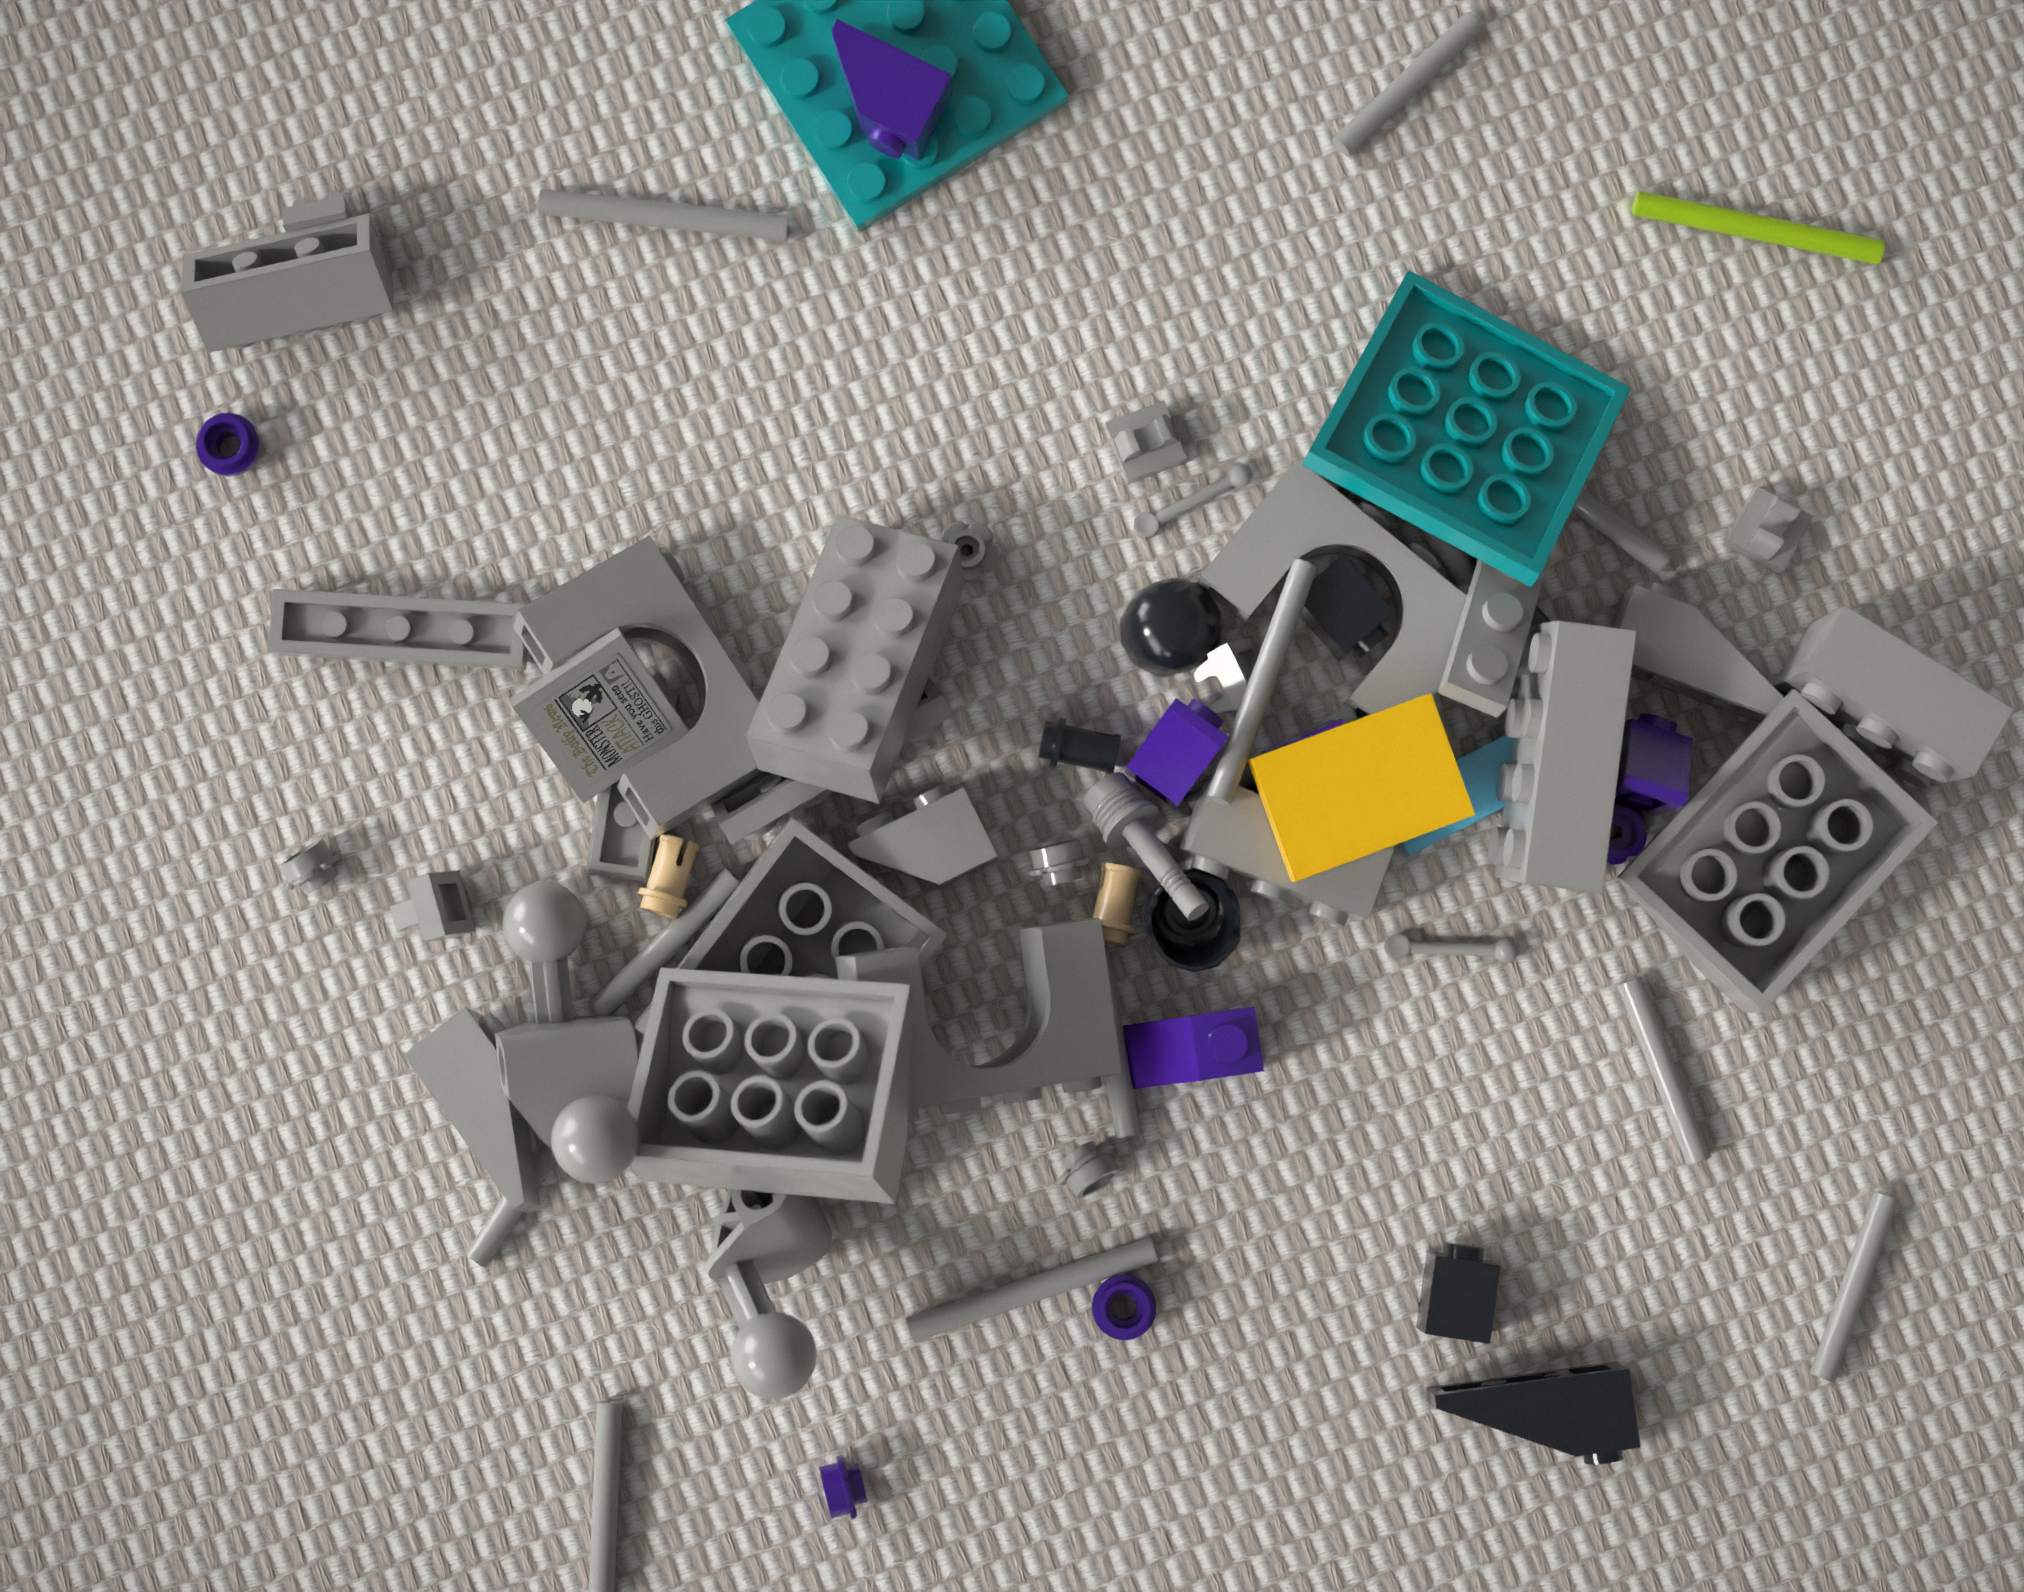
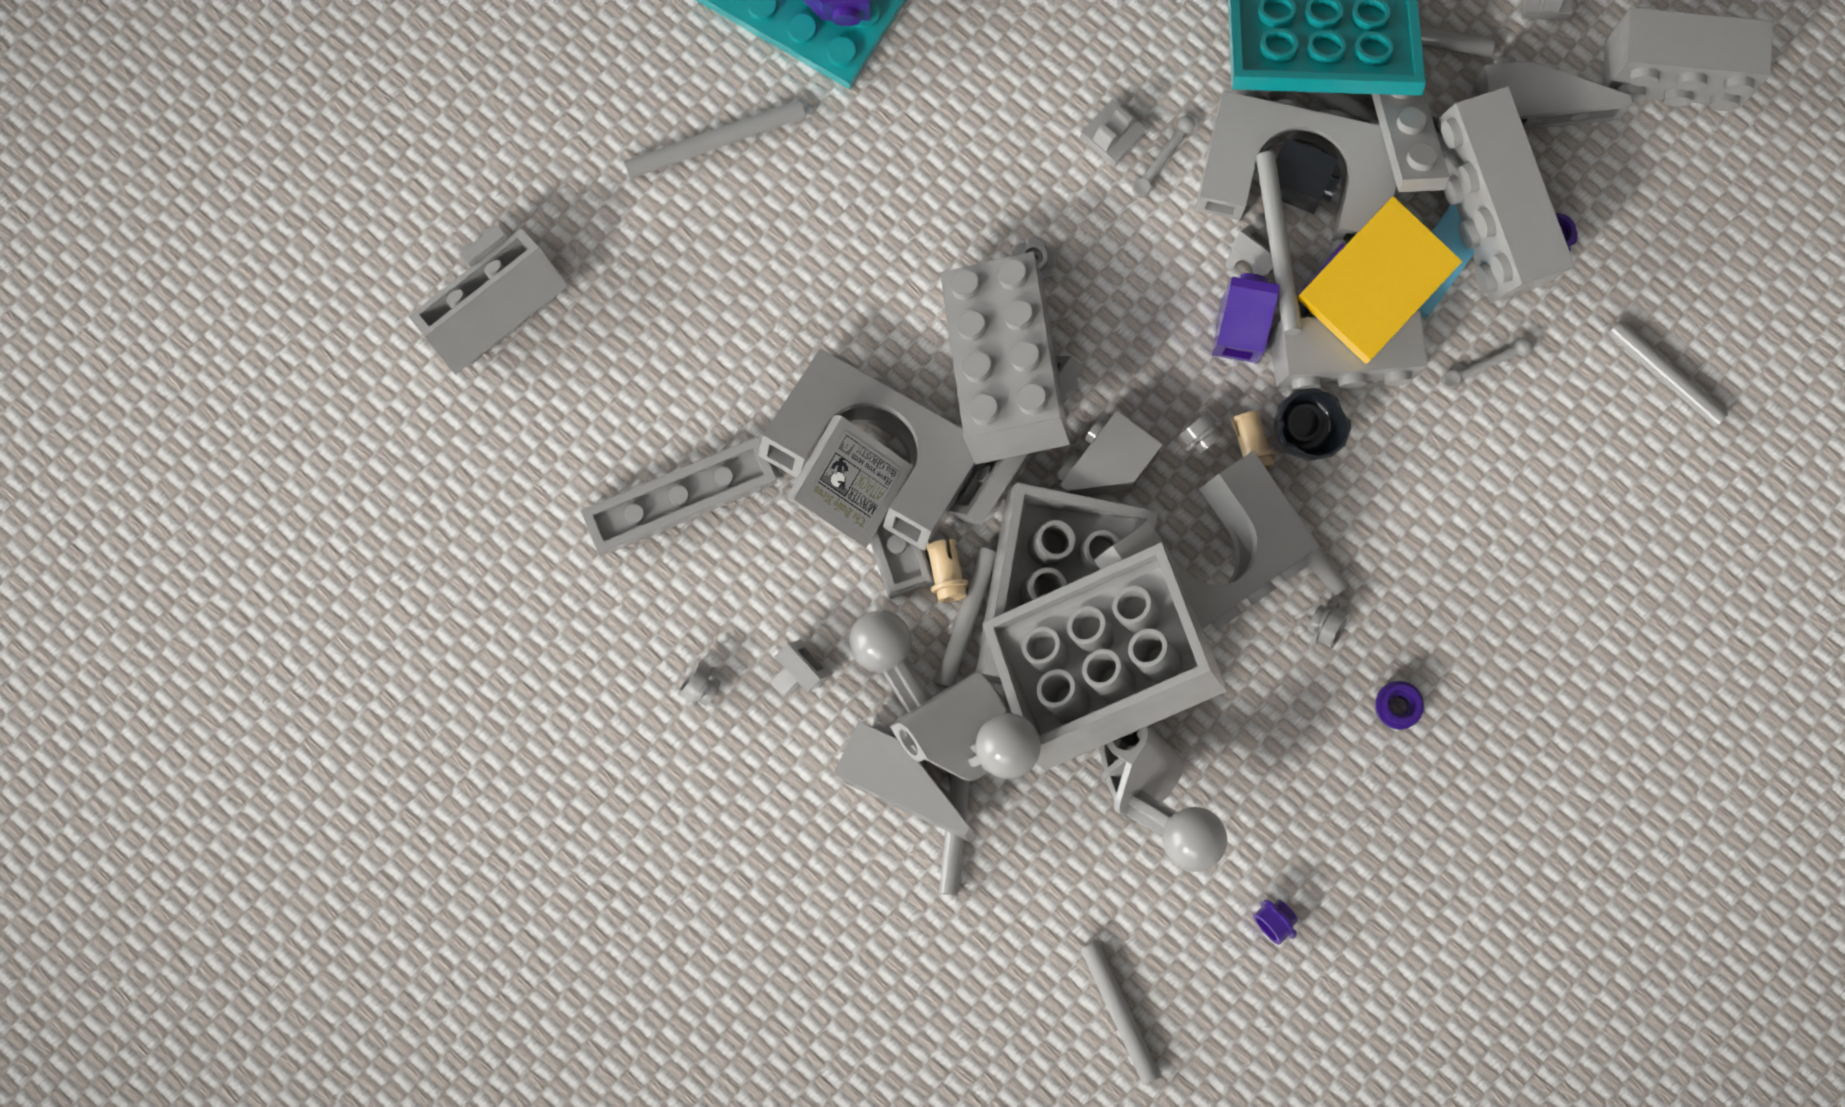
camera: 30 degrees left, 5 degrees down
(211, 437) = (490, 419): dark purple plate -> none
(1031, 1289) = (1331, 725): light grey bar -> none
(1079, 746) = (1174, 351): black pin -> none
(1126, 819) = (1231, 380): light grey piece -> none
(1170, 627) = (1193, 244): black hair -> none
(1193, 1048) = (1357, 508): dark purple slope -> none
(1458, 1294) = (1614, 583): black brick -> none
(1567, 1409) = (1724, 625): black slope -> none
(1653, 765) = (1565, 176): dark purple slope -> none
(1775, 853) = (1668, 194): light grey slope -> none

